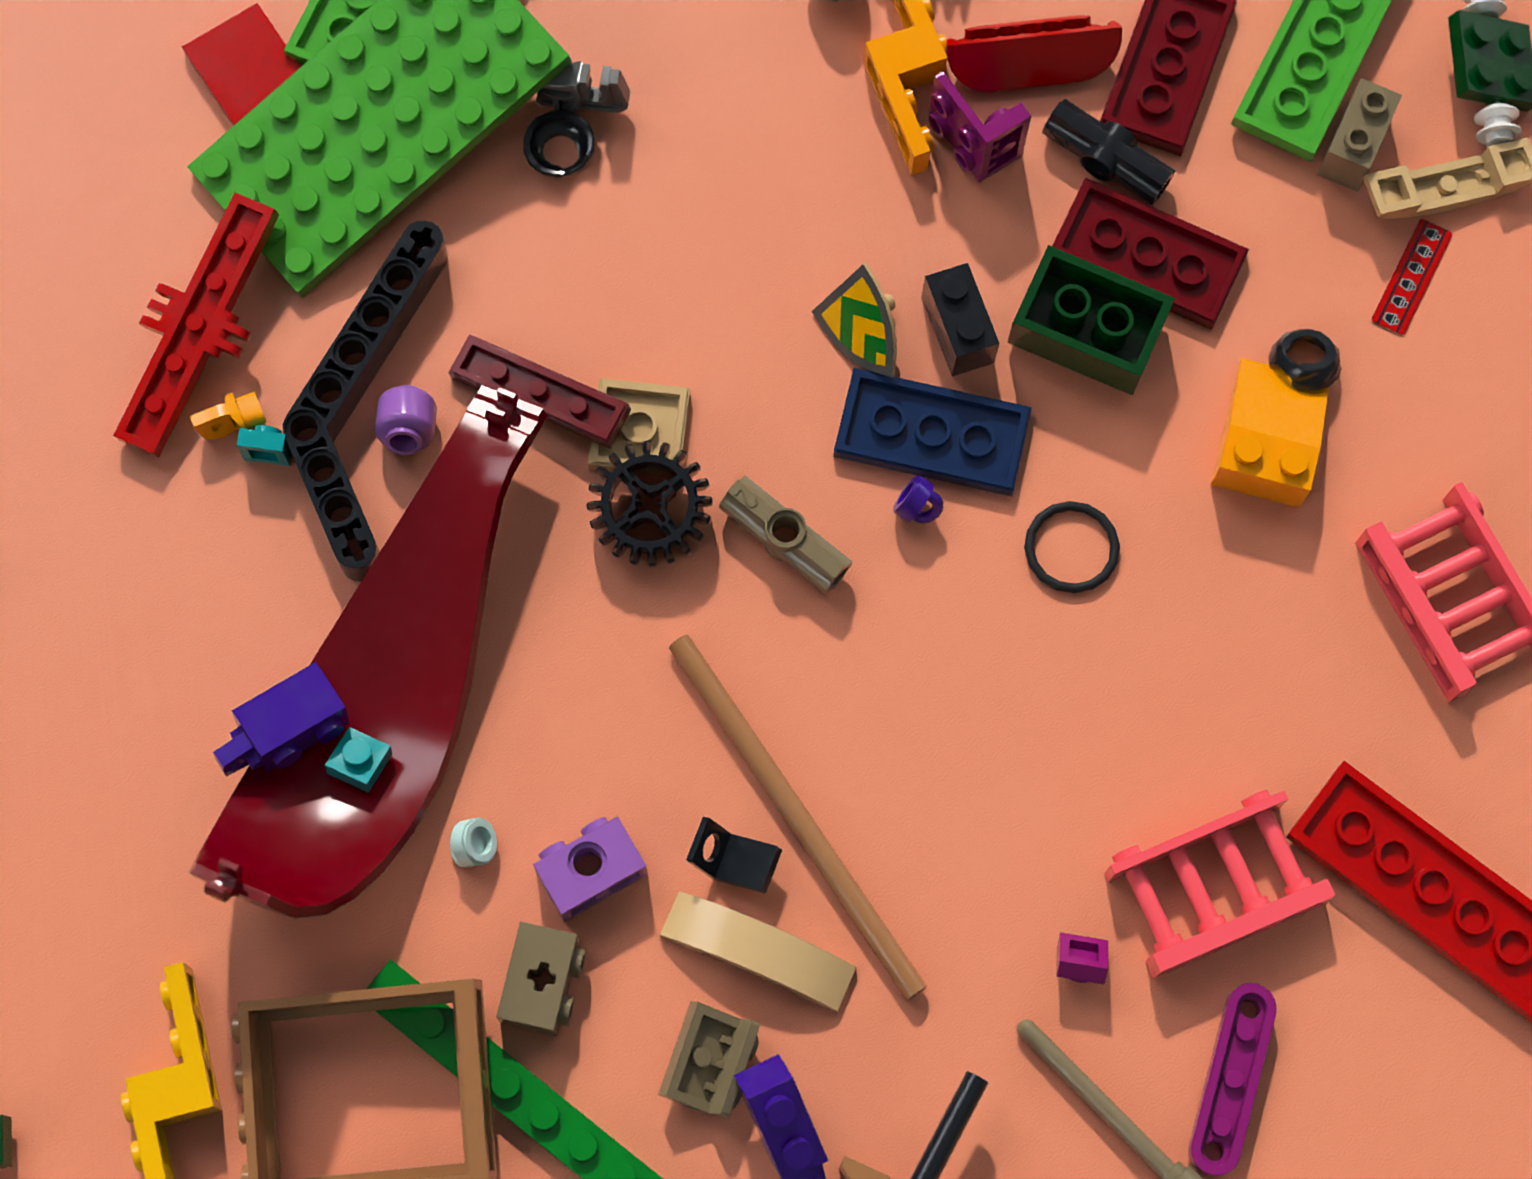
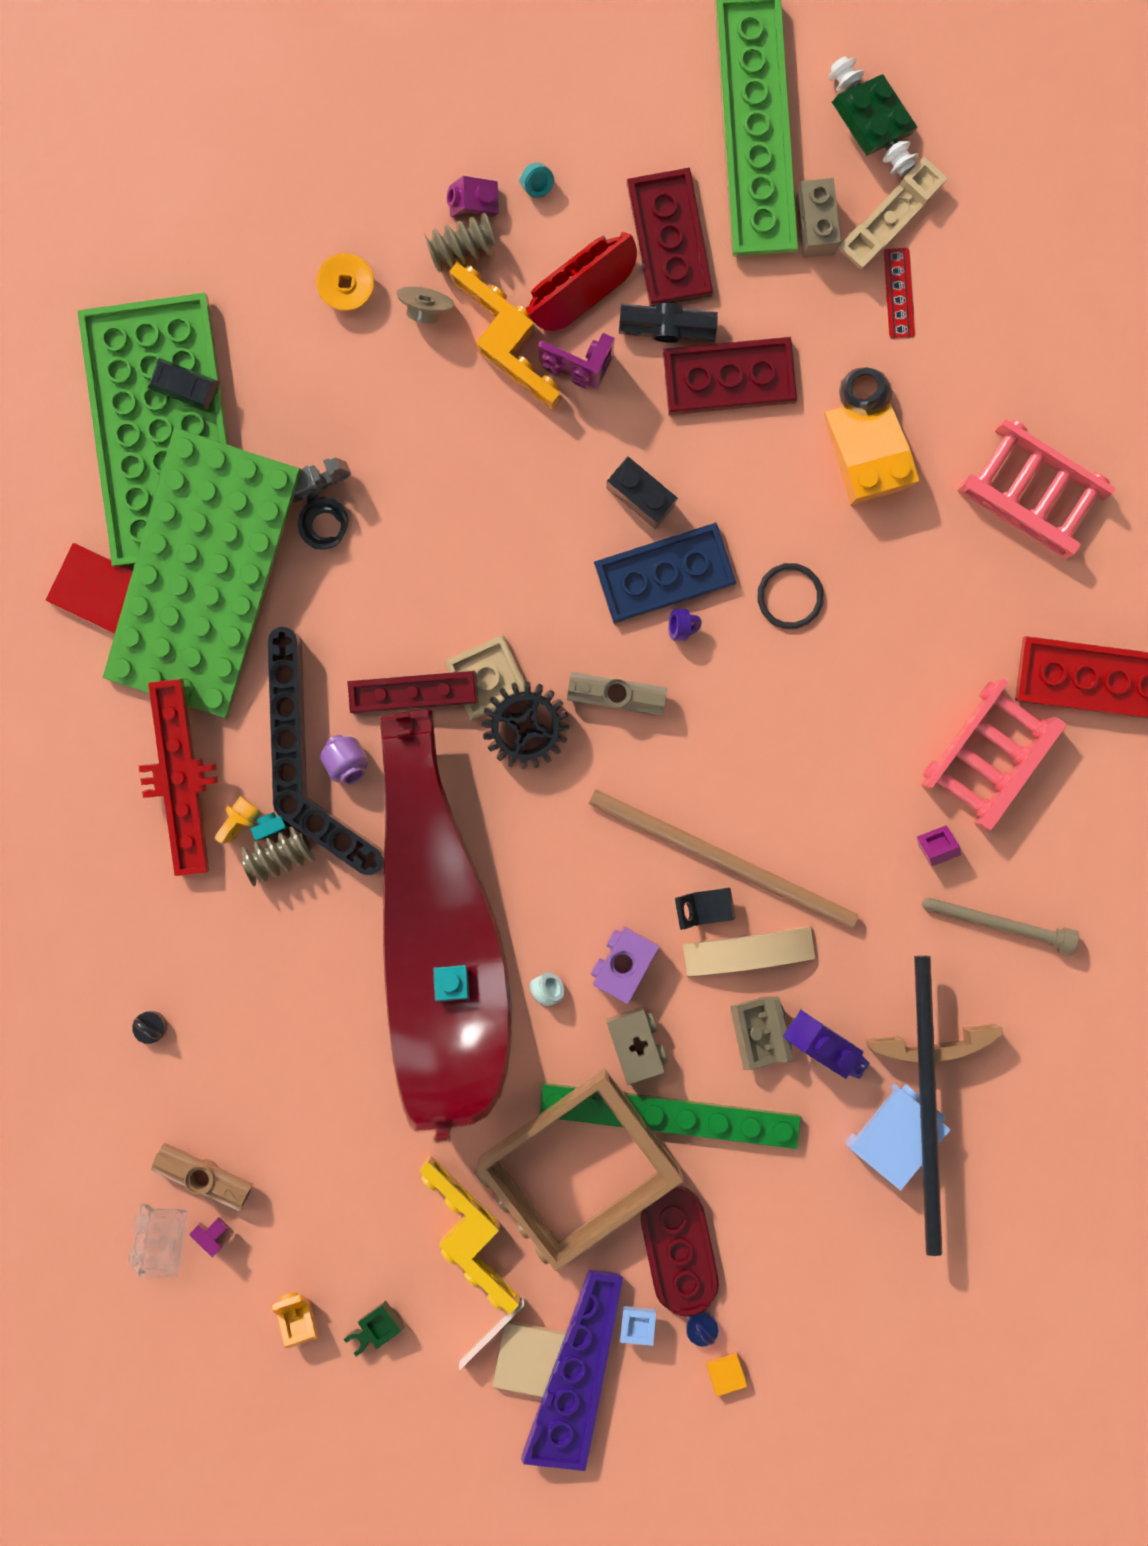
camera: 25 degrees left, 15 degrees up
(249, 483) = (276, 855): none -> dark tan piece
(284, 723) = (394, 991): dark purple hinge -> none
(861, 322) = (583, 531): shield -> none
(1090, 320) = (723, 446): dark green brick -> none
(1232, 1080) = (1062, 864): magenta plate -> none

